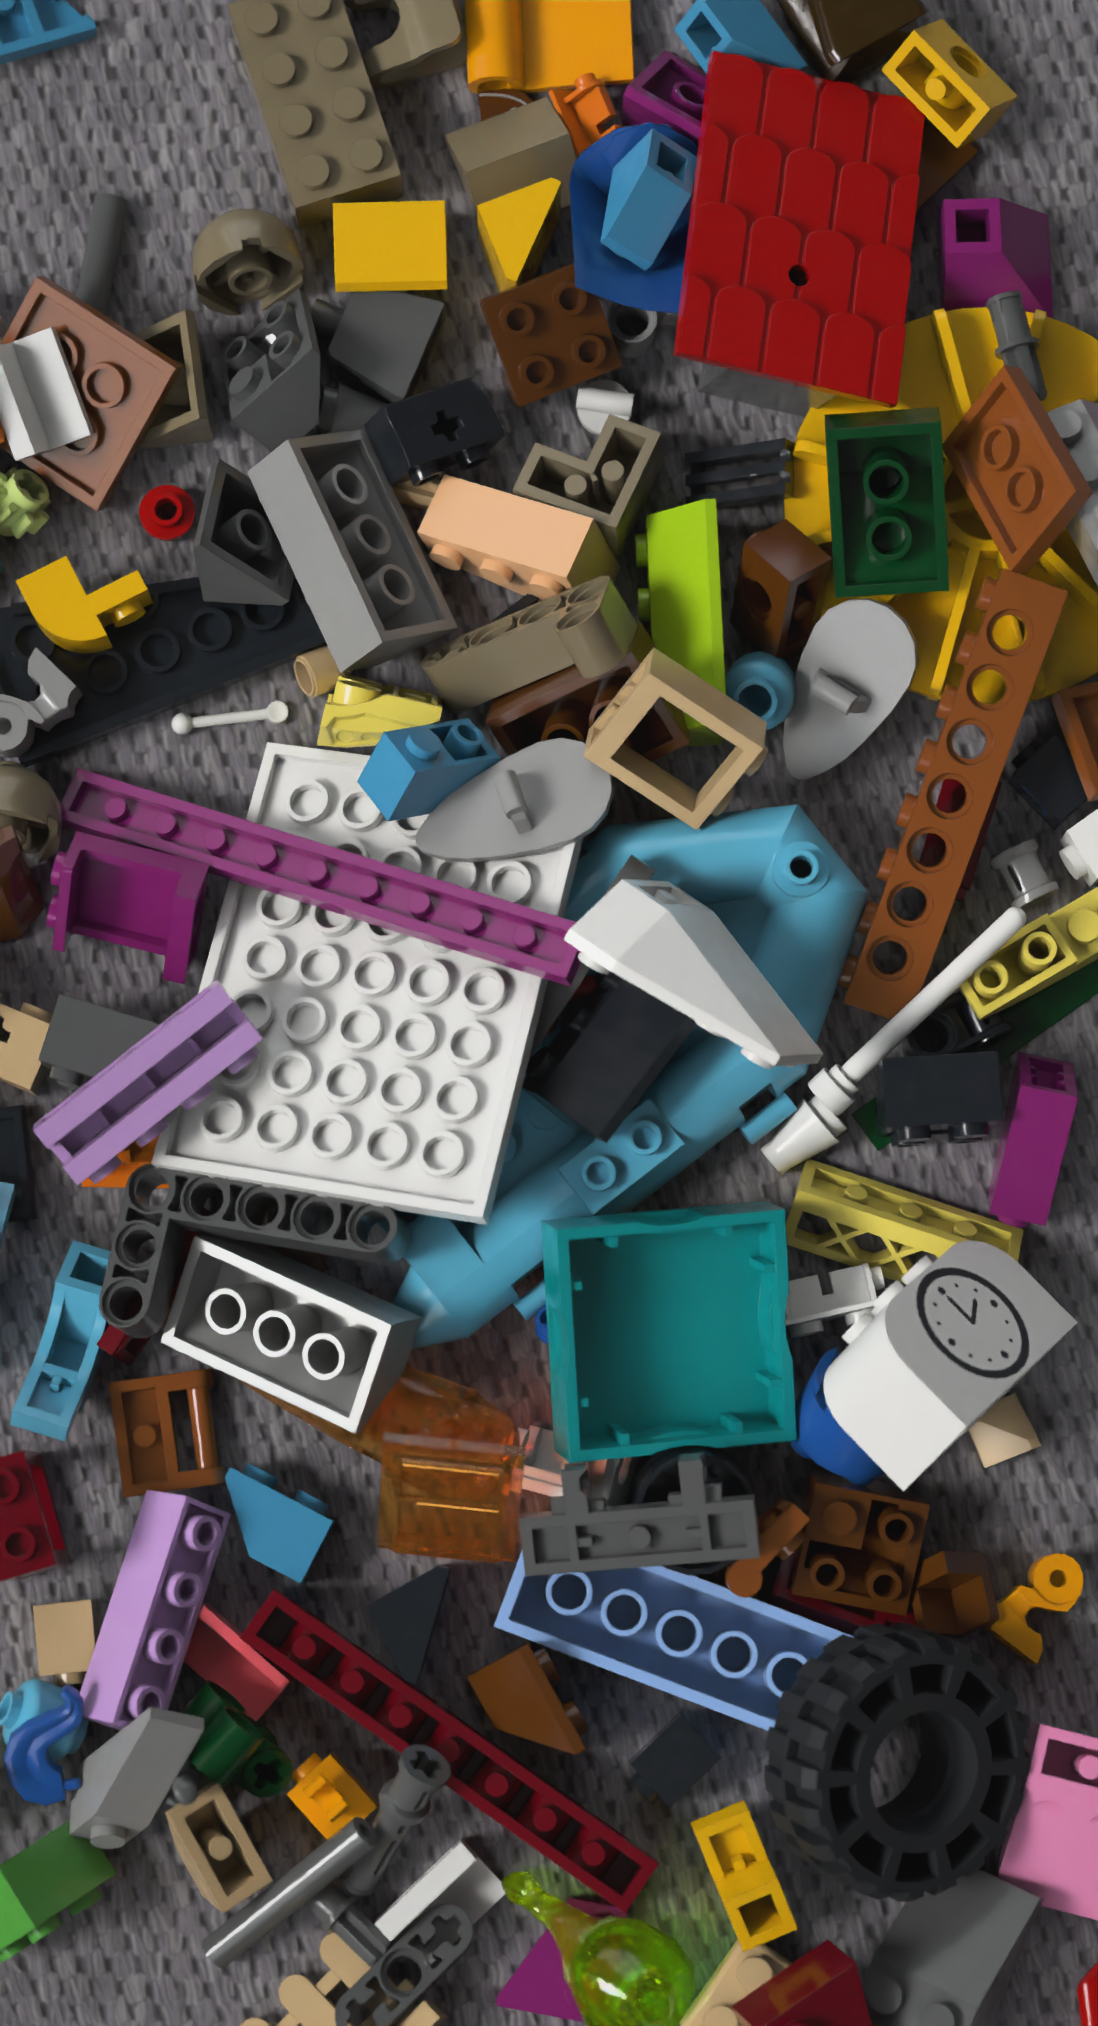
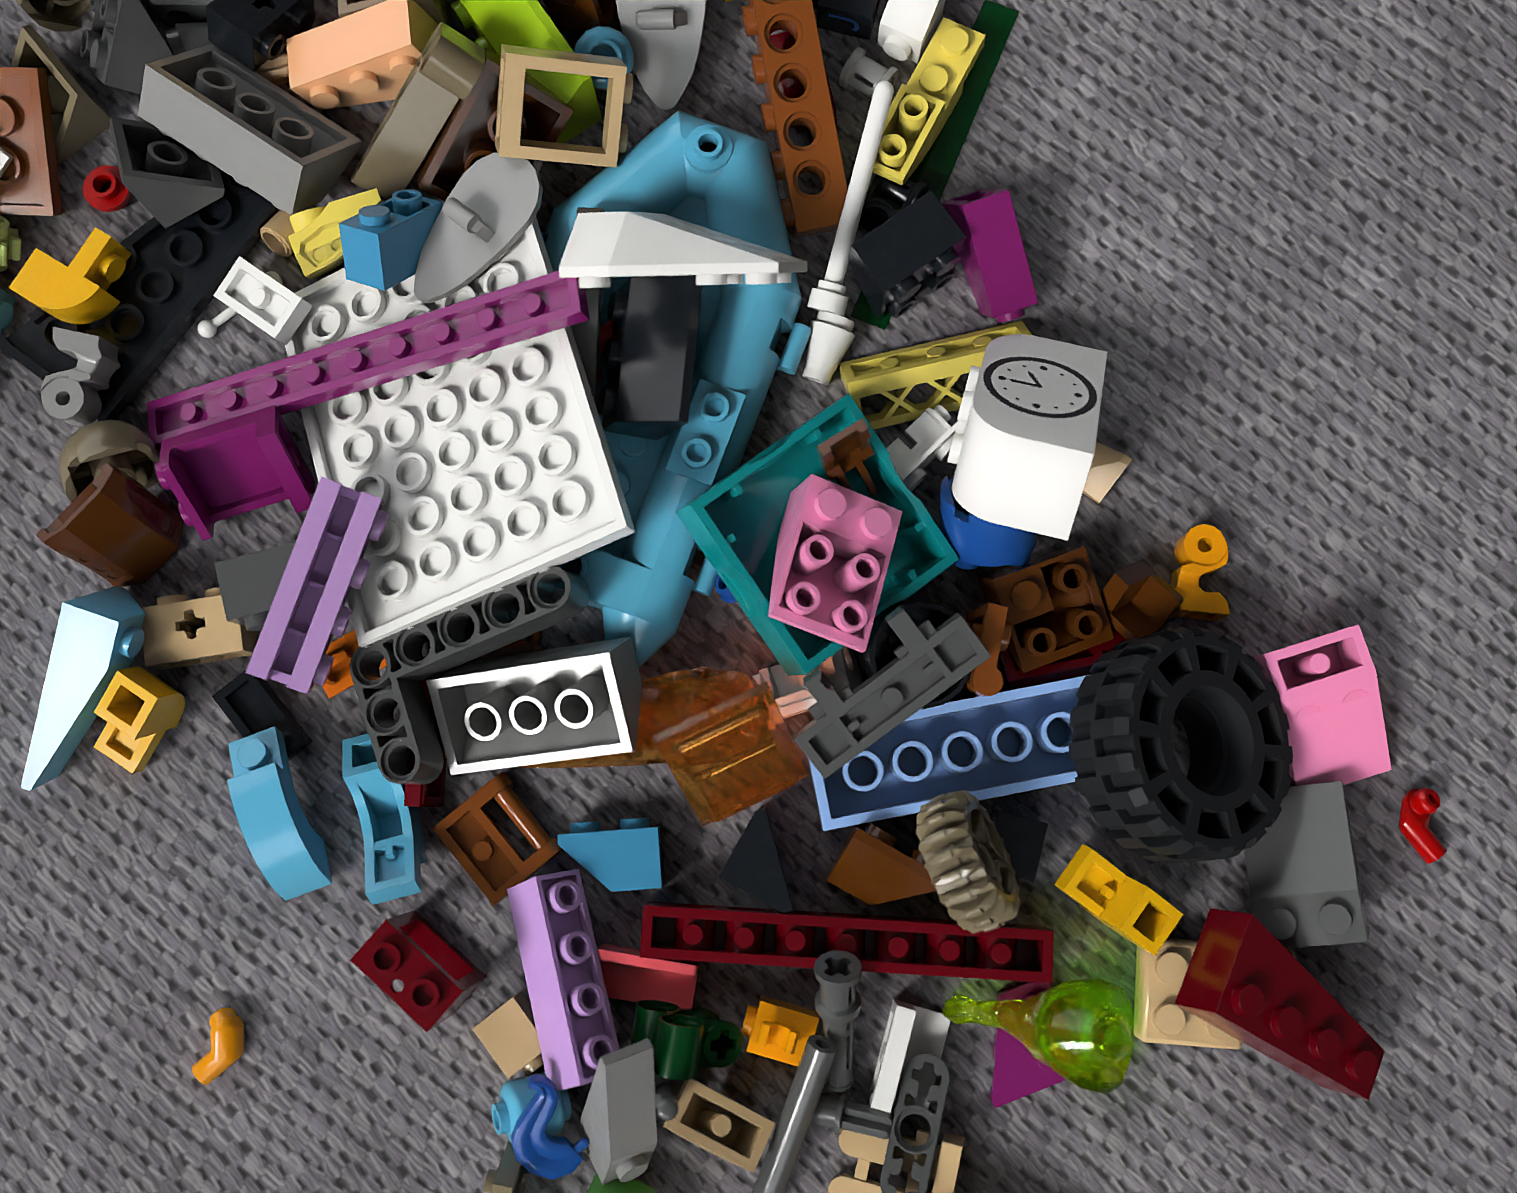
camera: 25 degrees left, 0 degrees up
(258, 738) = (262, 300): none -> white plate
(613, 1741) = (967, 862): none -> dark tan gear
(663, 1367) = (832, 561): none -> bright pink slope
(740, 1271) = (845, 452): none -> reddish brown arm

